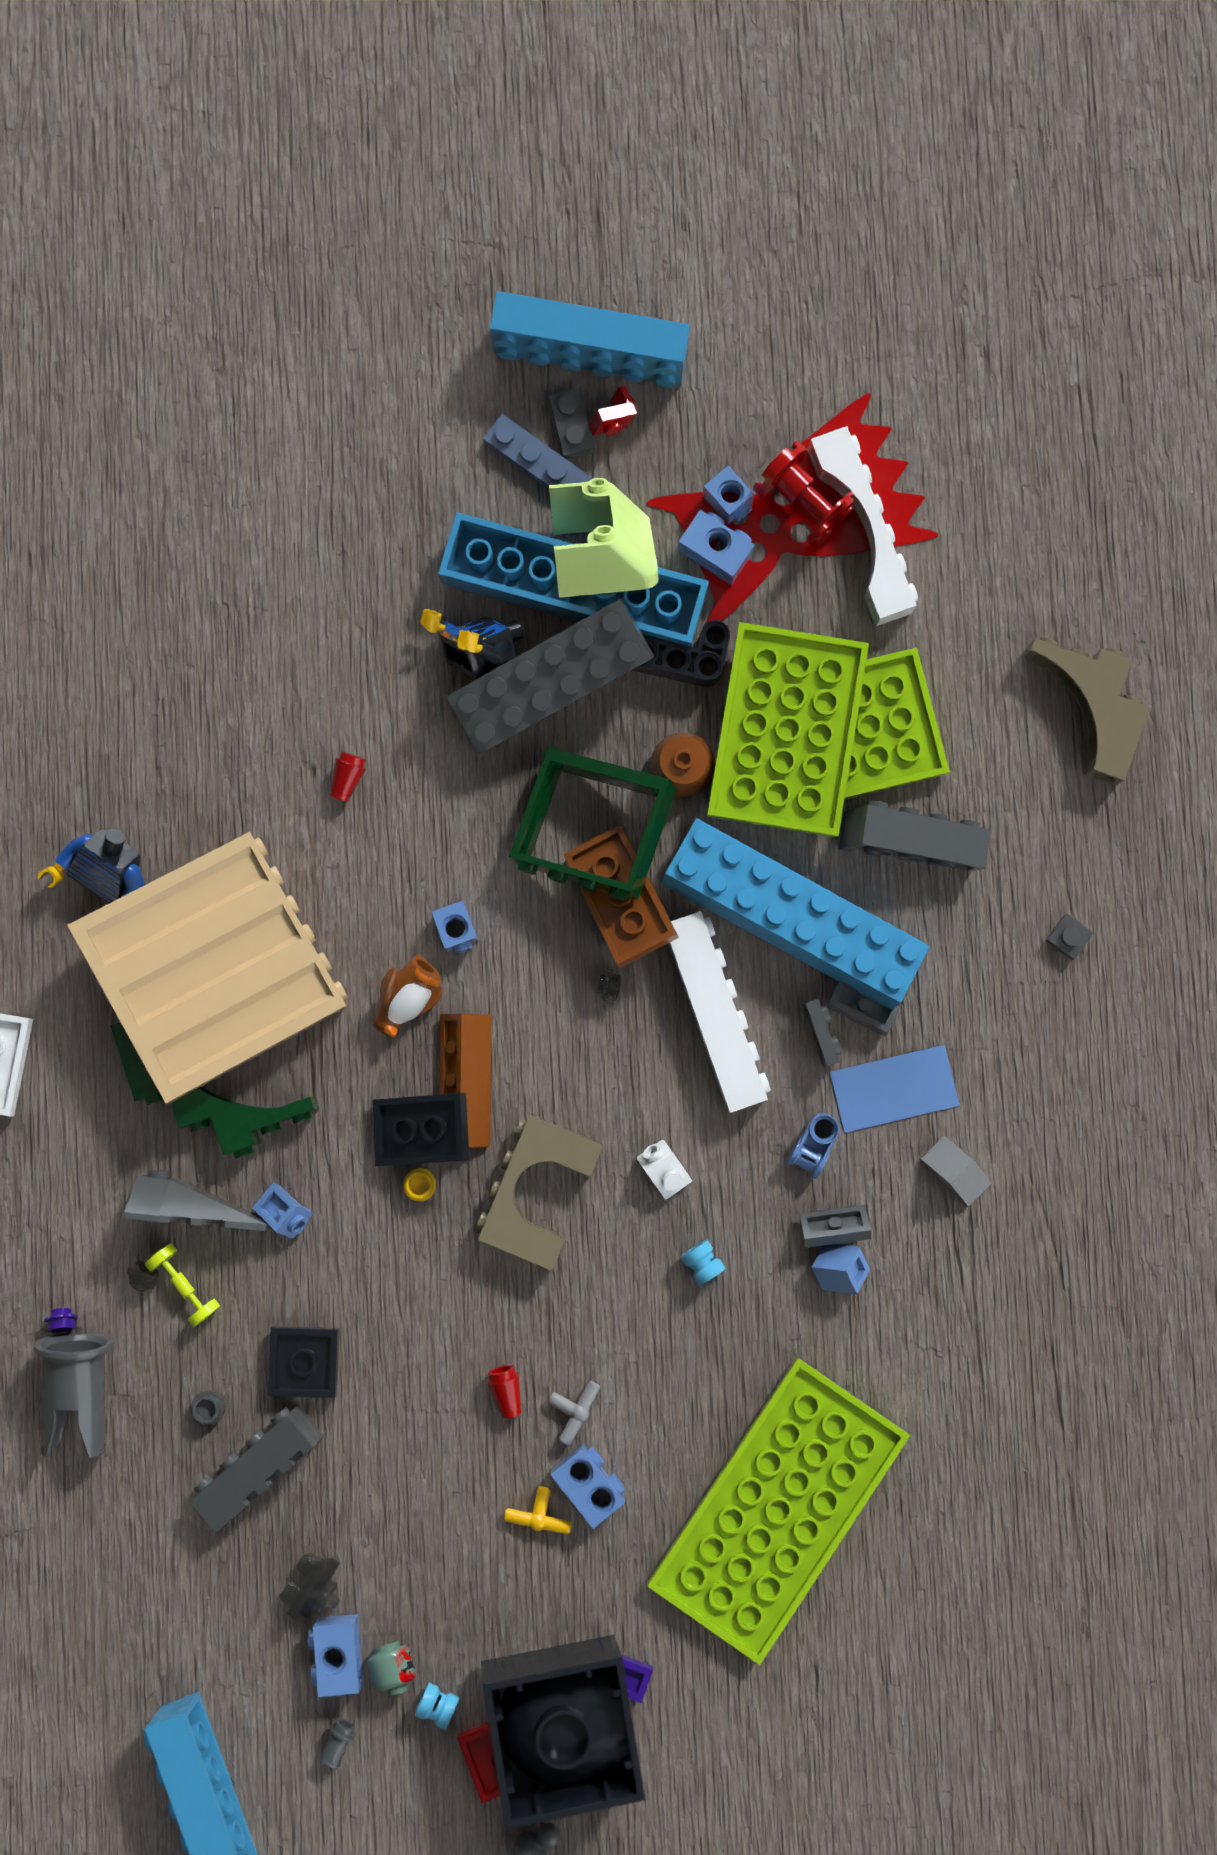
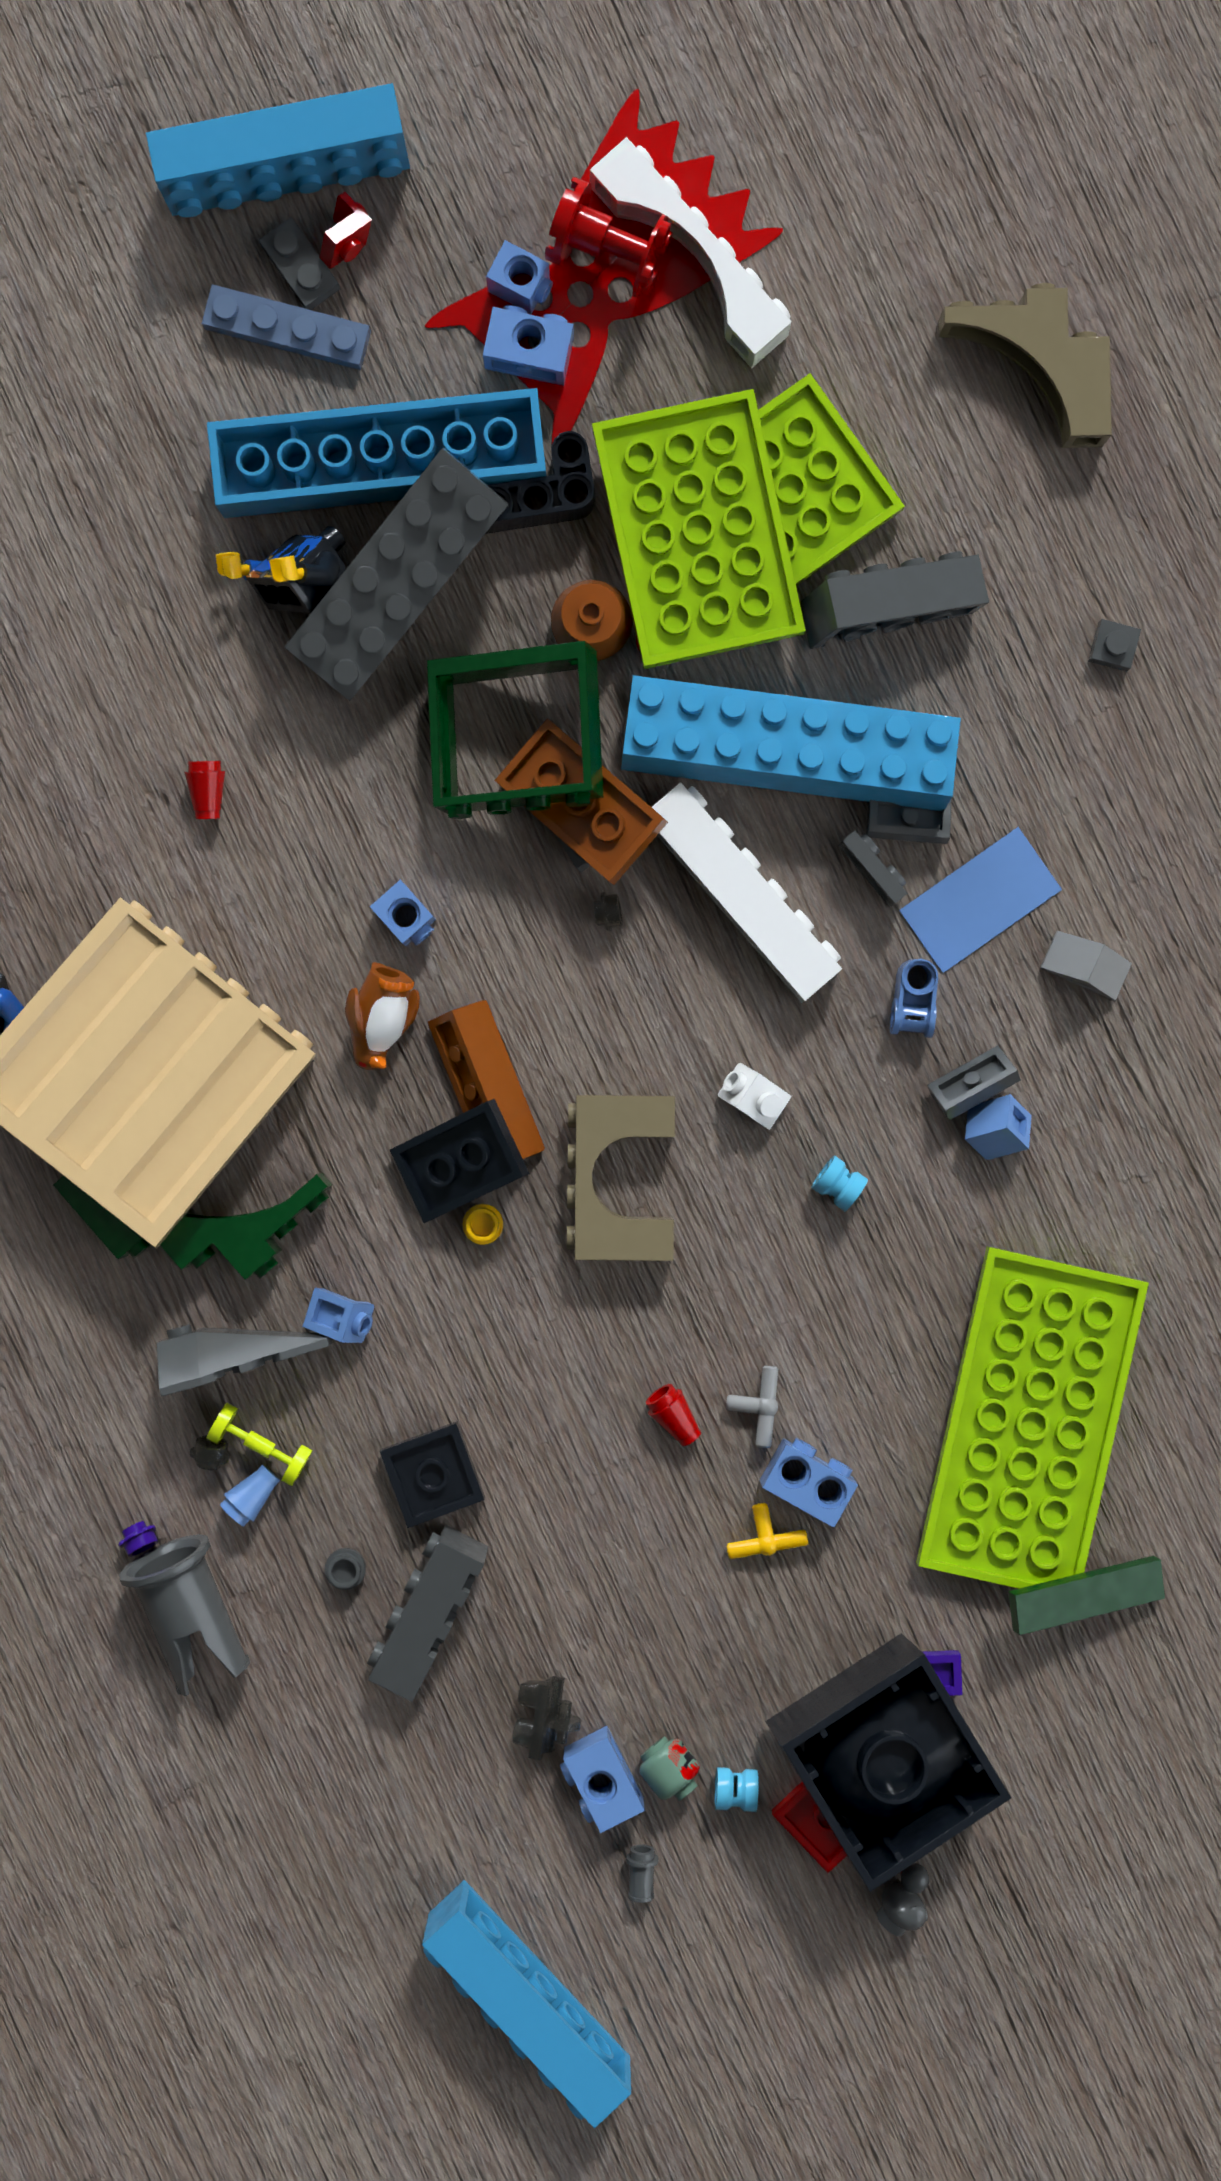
camera: 20 degrees left, 5 degrees up
(157, 1322) = (249, 1496): none -> medium blue cone
(618, 548) = (415, 383): yellowish green windscreen -> none
(768, 1662) = (1086, 1595): none -> dark green tile

